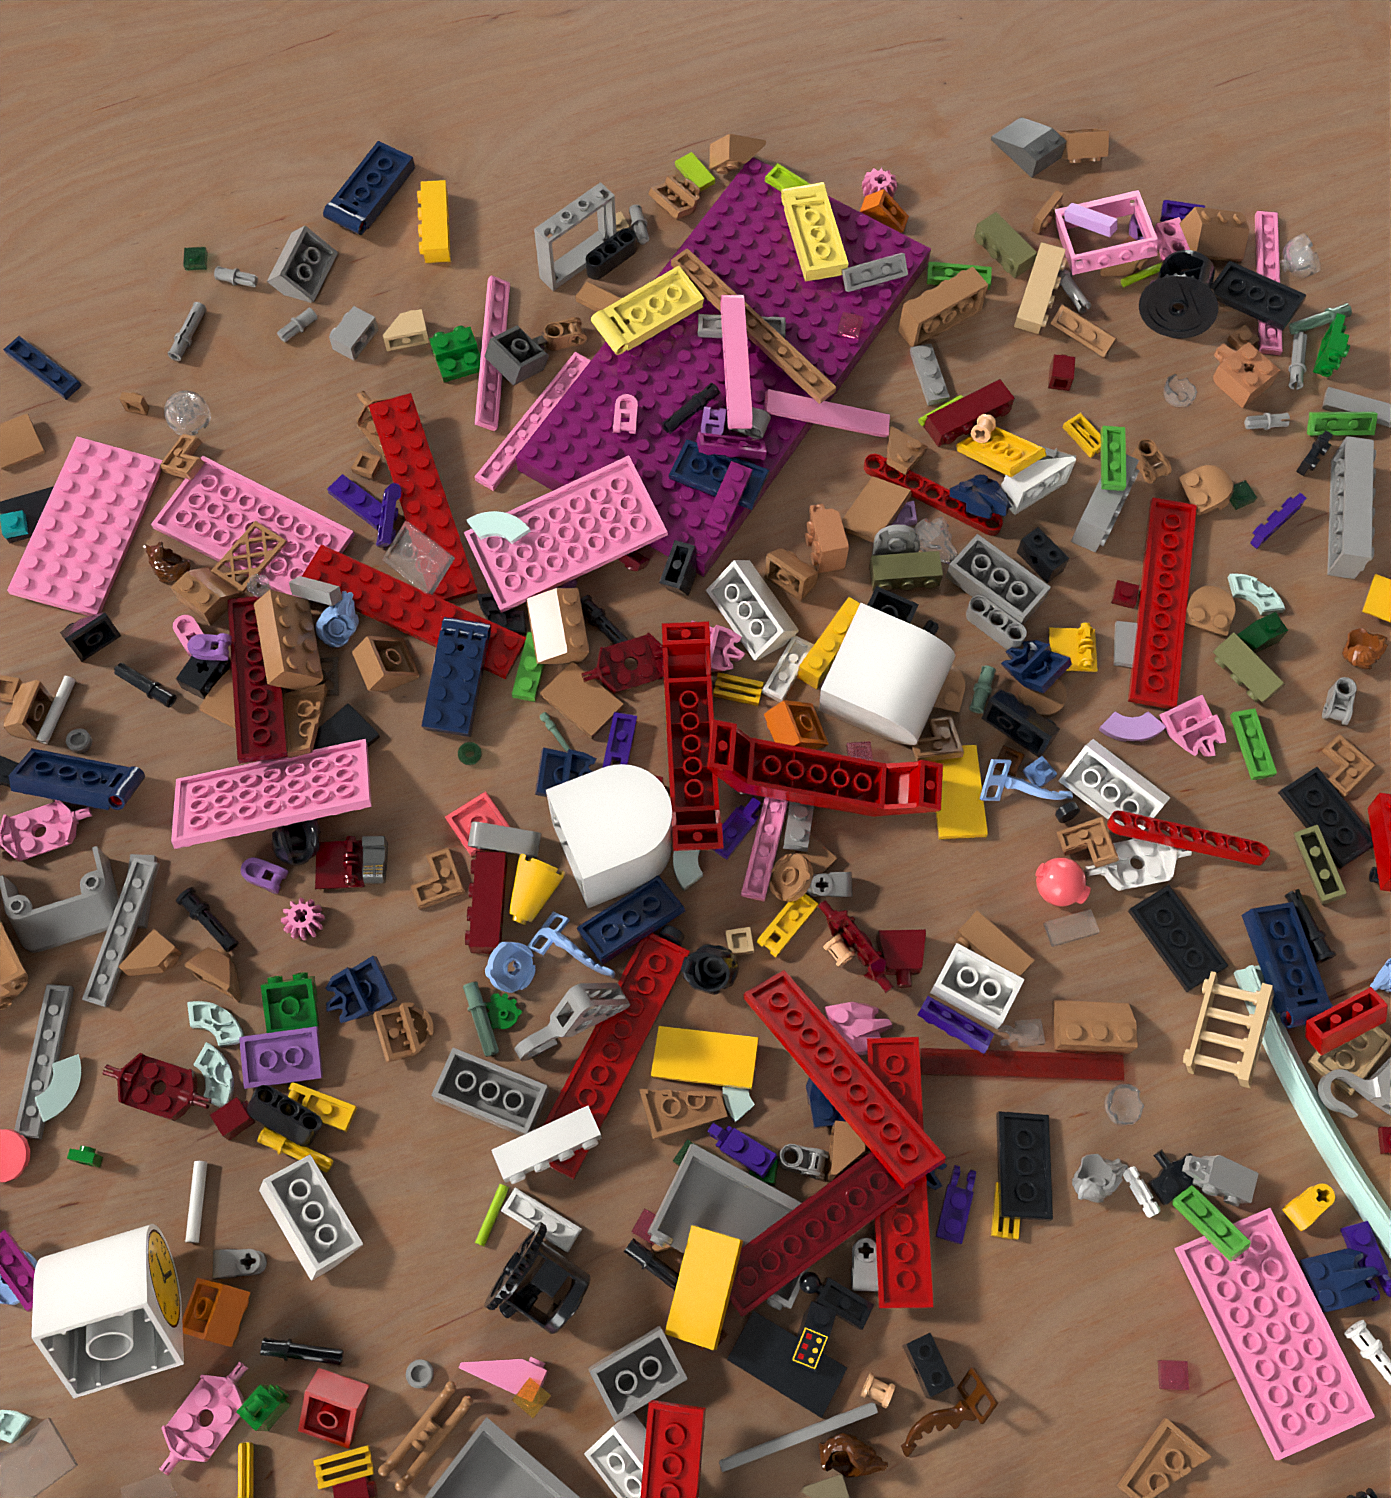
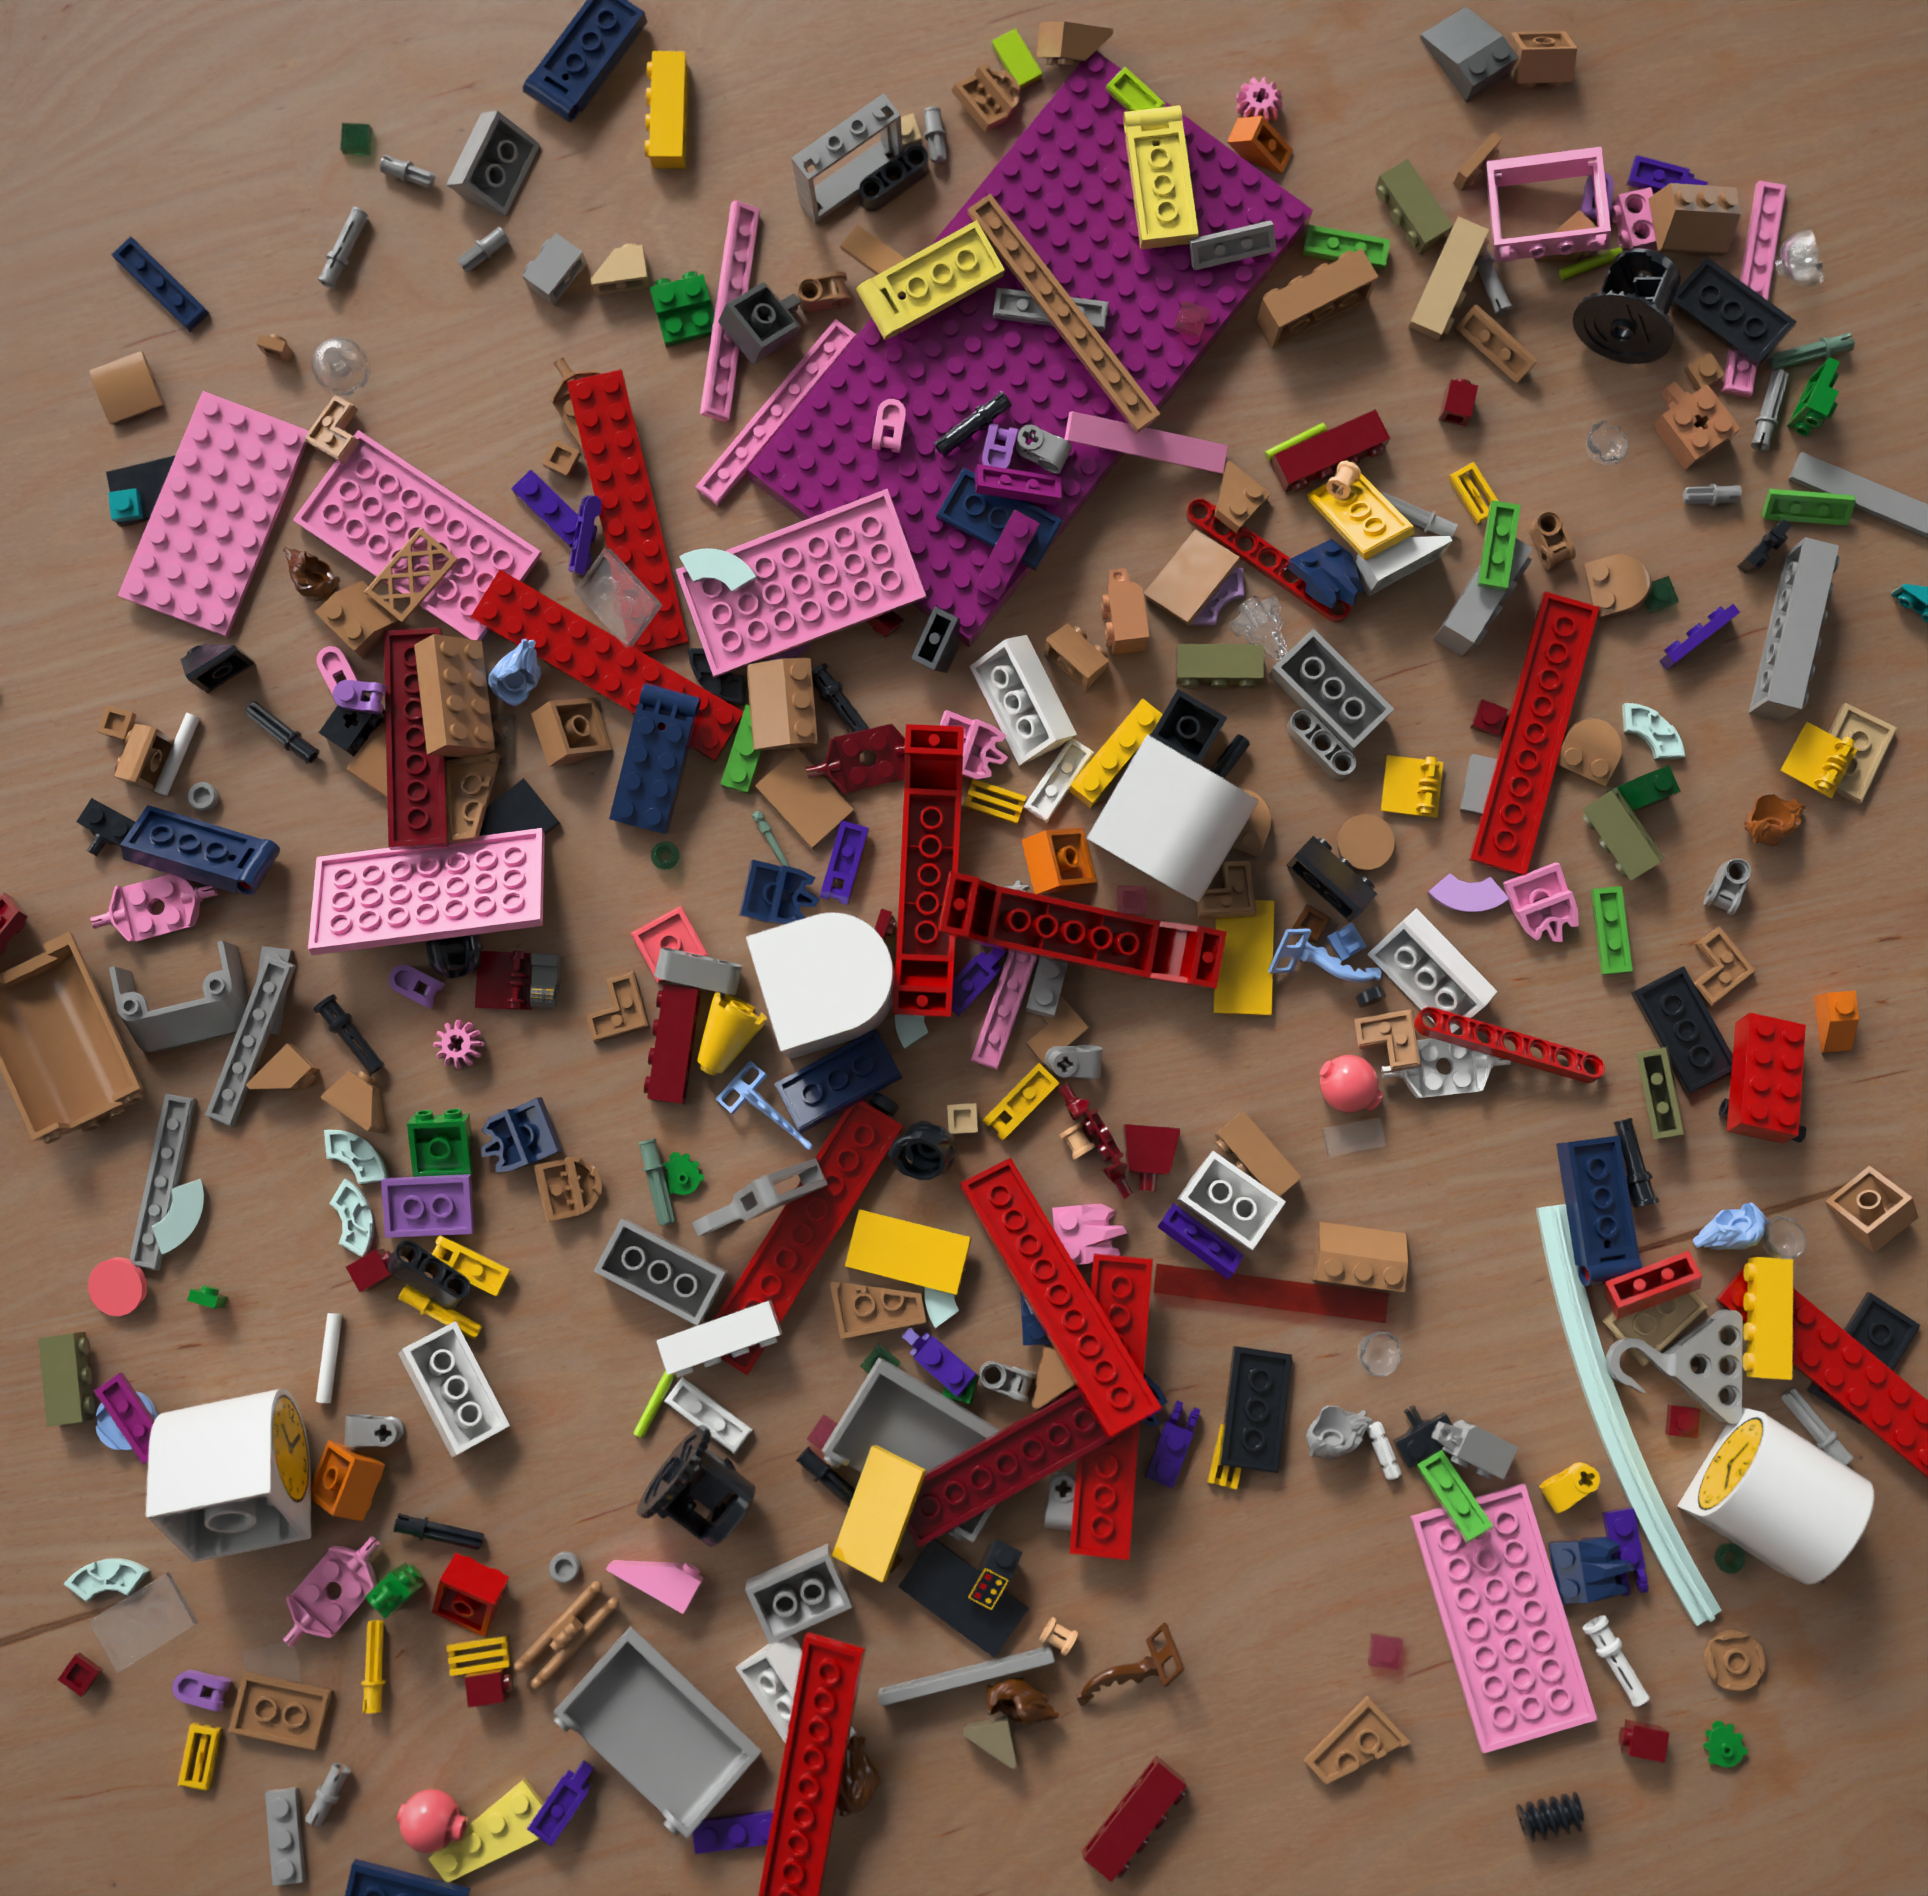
camera: 10 degrees right, 15 degrees up
(139, 1078) = (266, 1221): dark red plate -> none
(252, 585) = (425, 610): clear plate -> none
(315, 590) = (489, 634): light grey piece -> none
(498, 967) = (684, 1116): light blue plate -> none
(531, 1397) = (681, 1610): clear yellow plate -> none
(736, 362) = (1035, 370): bright pink beam -> none
(791, 877) = (1030, 1049): medium nougat tile -> none
(834, 1296) = (1025, 1536): black plate -> none
(896, 540) = (1210, 628): light grey tile -> none
(928, 1365) = (1116, 1616): black brick -> none
(929, 374) = (1287, 388): light grey plate -> none
(982, 689) = (1292, 829): sand green pin -> none
(1026, 1032) = (1281, 1257): clear plate -> none
(1036, 665) = (1362, 807): dark blue plate -> none
(1042, 555) = (1393, 658): black brick -> none
(1090, 219) = (1529, 187): lavender piece -> none
(1177, 938) = (1477, 1161): black tile -> none
(1249, 1046) = (1536, 1303): tan fence -> none

